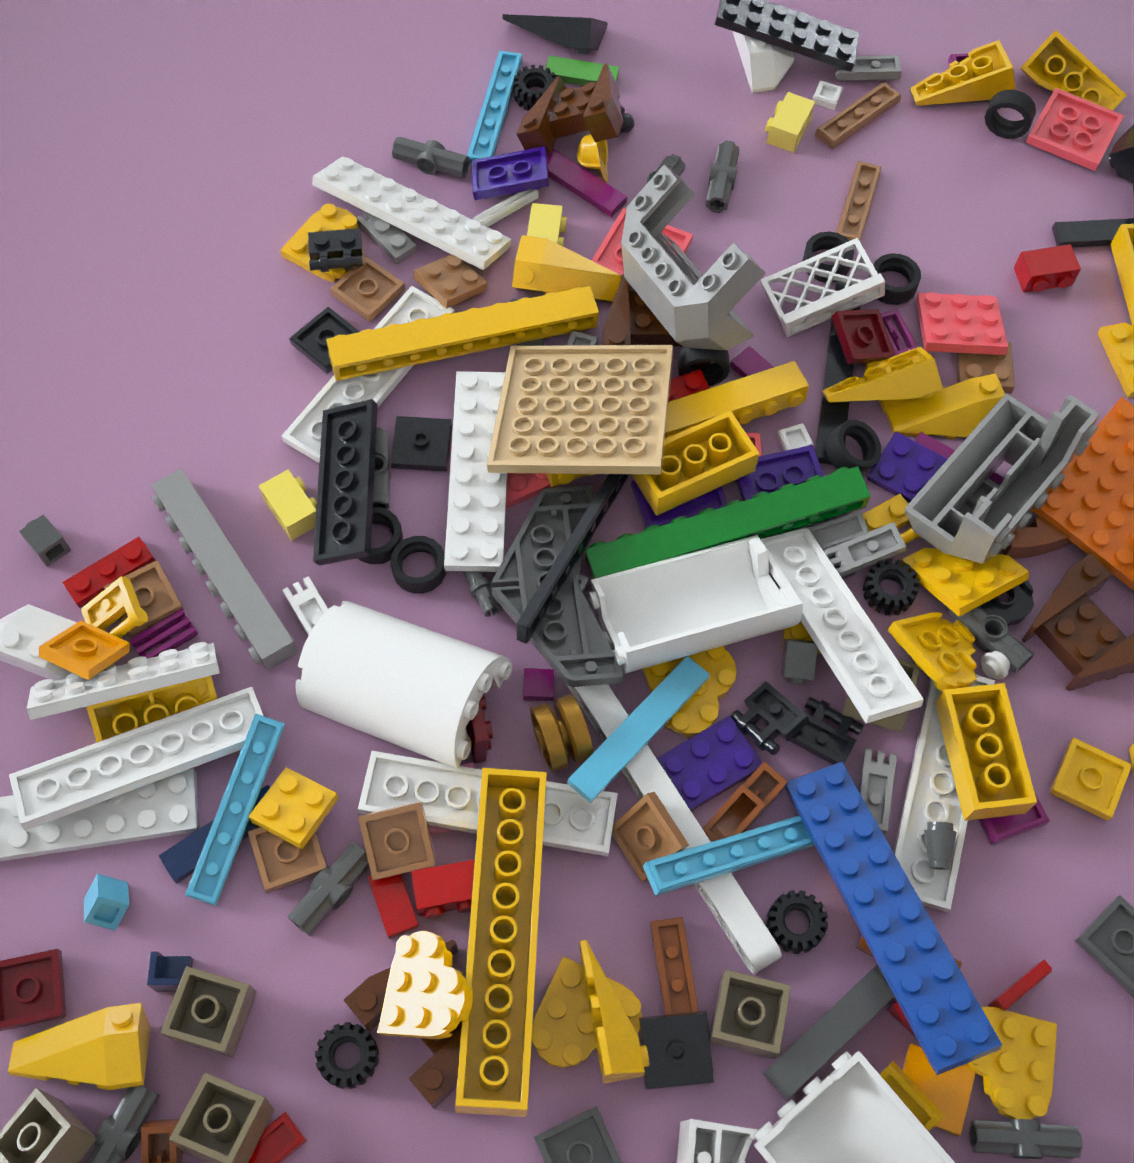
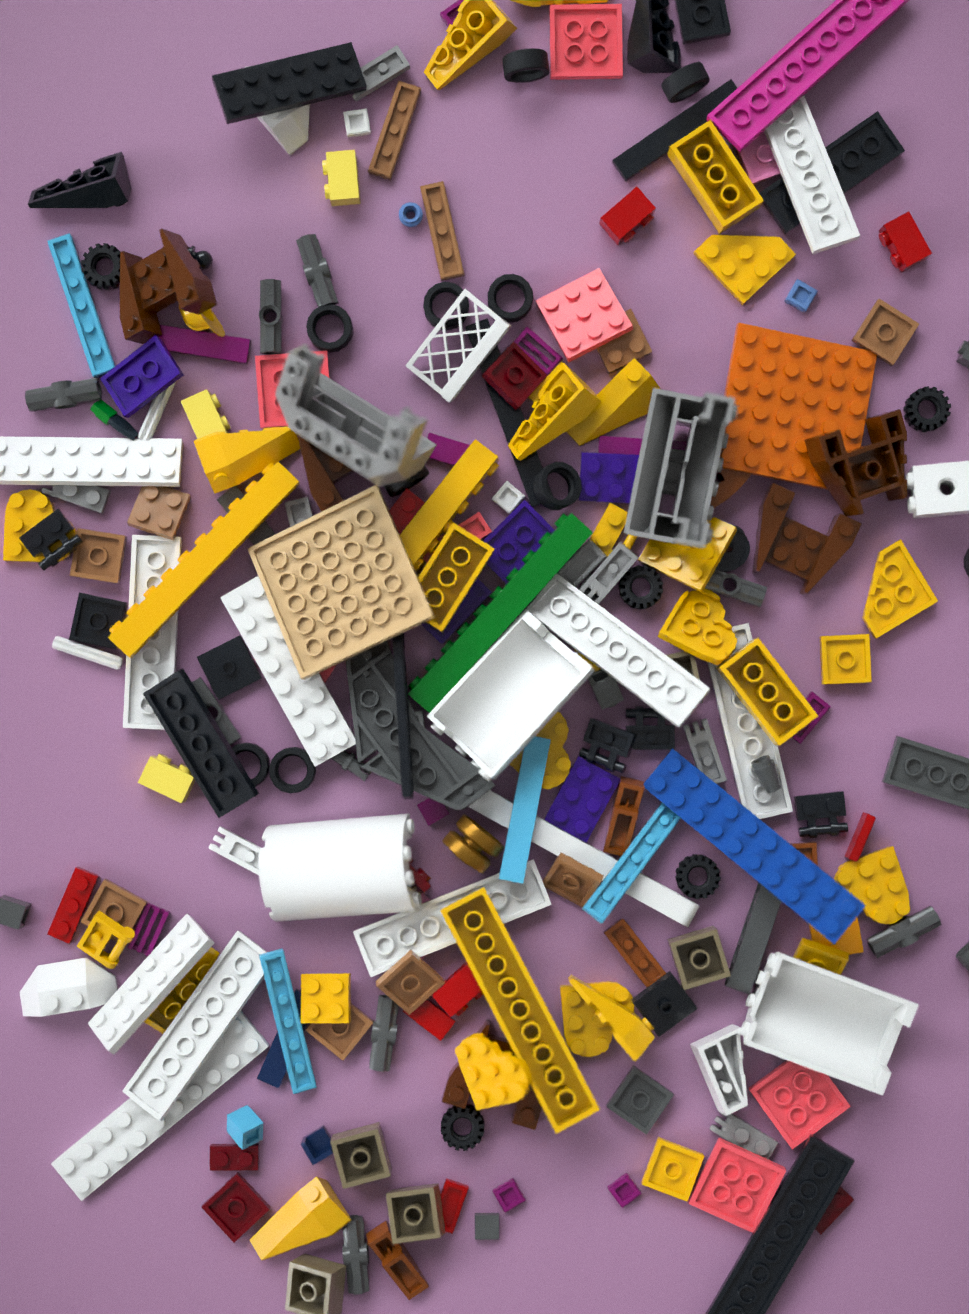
camera: 30 degrees left, 25 degrees up
(70, 932) = (232, 1158): none -> dark red plate
(84, 649) = (109, 981): light orange plate -> none
(225, 570) = (153, 856): light grey brick -> none
(297, 361) = (87, 652): none -> white axle
(459, 194) = (109, 417): none -> piece
(577, 71) = (132, 222): bright green tile -> none
(711, 207) = (326, 310): none -> black tyre
(836, 176) = (410, 207): none -> medium blue plate
(987, 928) = (817, 806): none -> black plate
(995, 665) = (743, 609): white plate -> none

